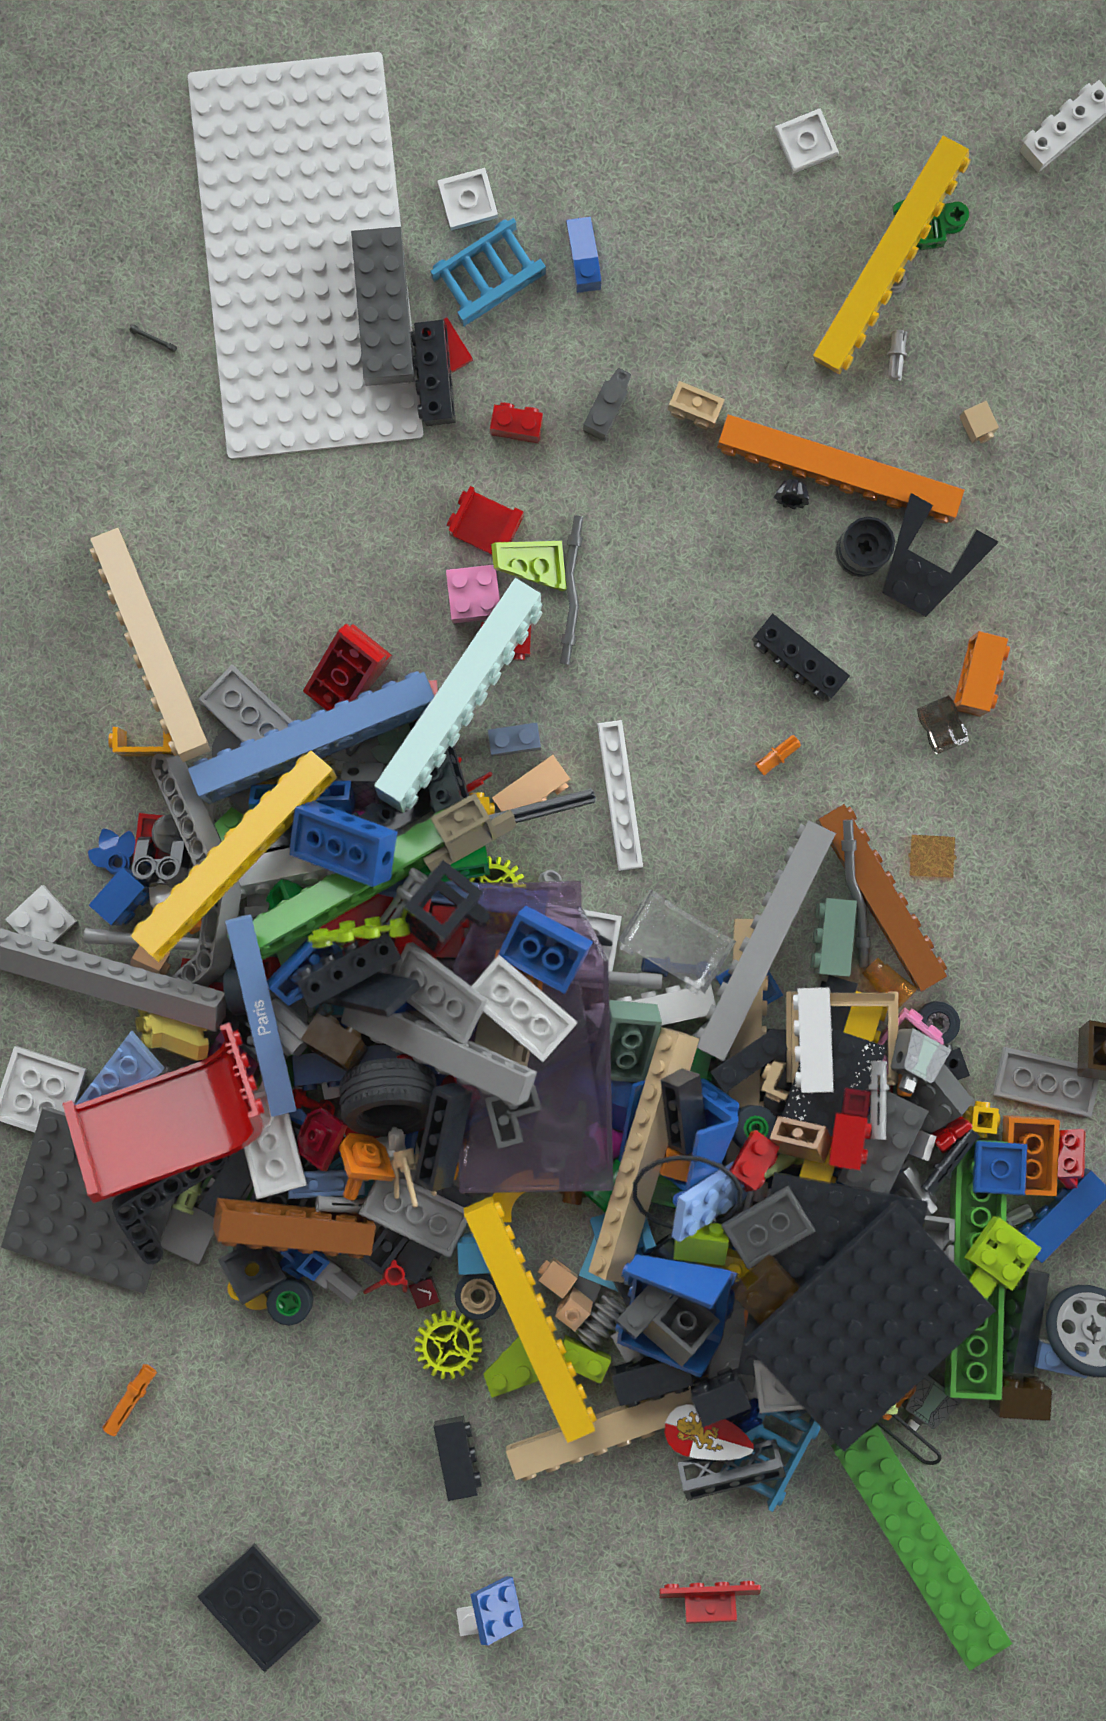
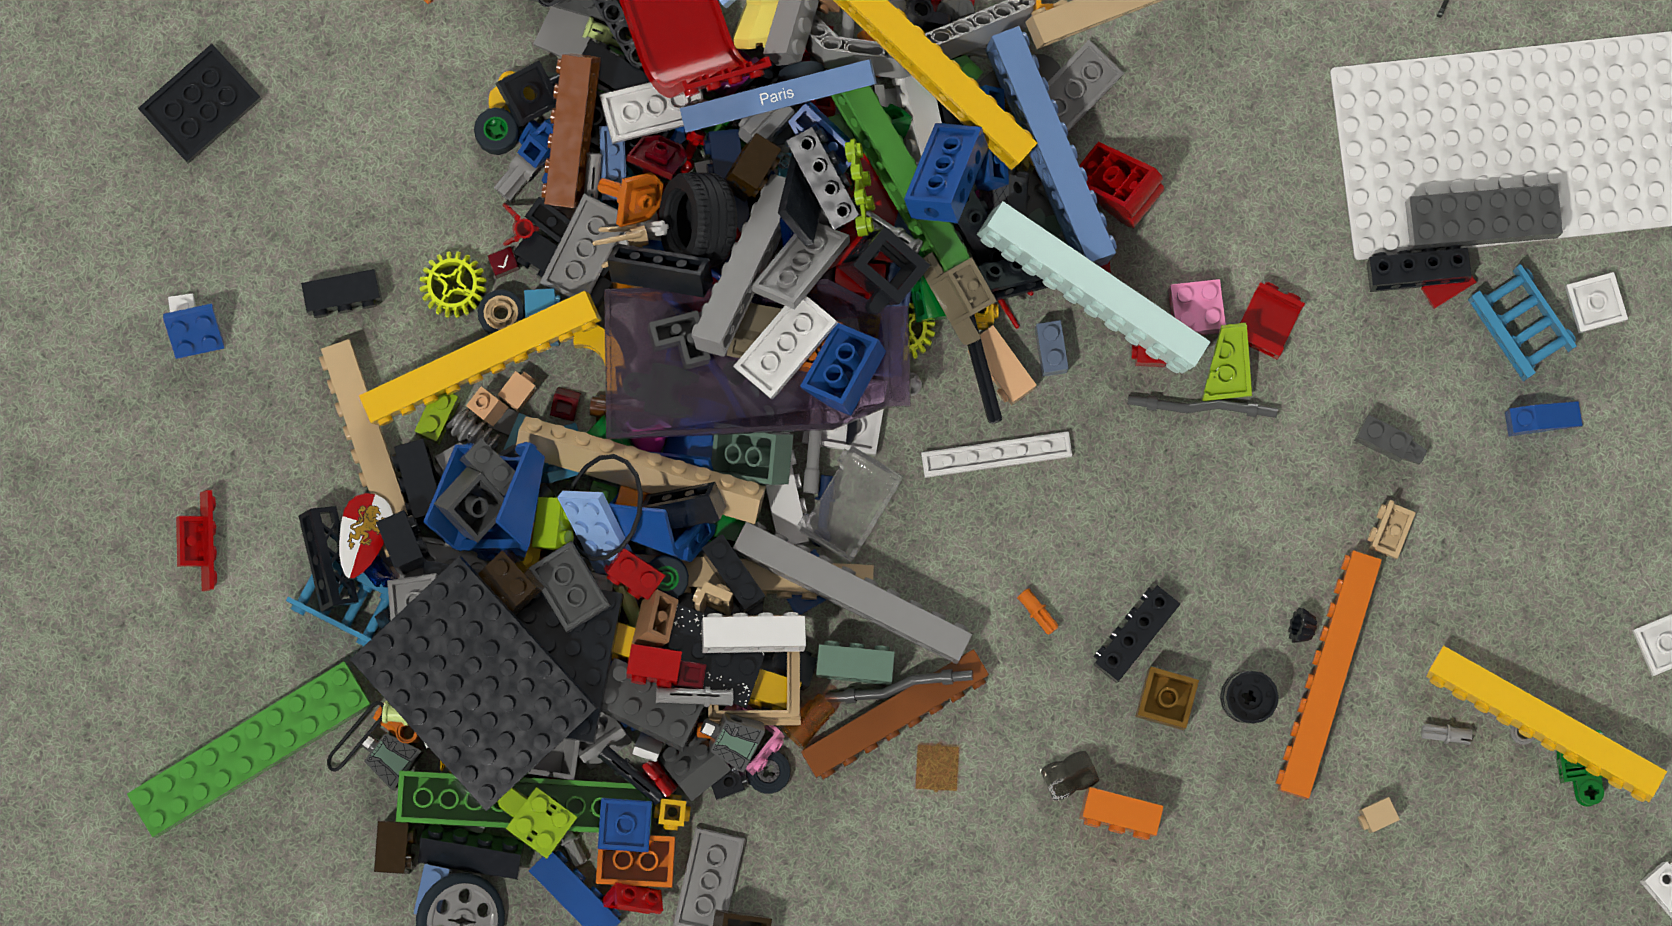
camera: 85 degrees right, 5 degrees down
(510, 1370) = (424, 343): lime wing -> none
(516, 423) = (1369, 350): red brick -> none
(568, 1228) = (565, 403): none -> dark red slope
(866, 628) = (1167, 698): none -> pearl gold brick
(918, 581) = (1216, 752): black wing -> none

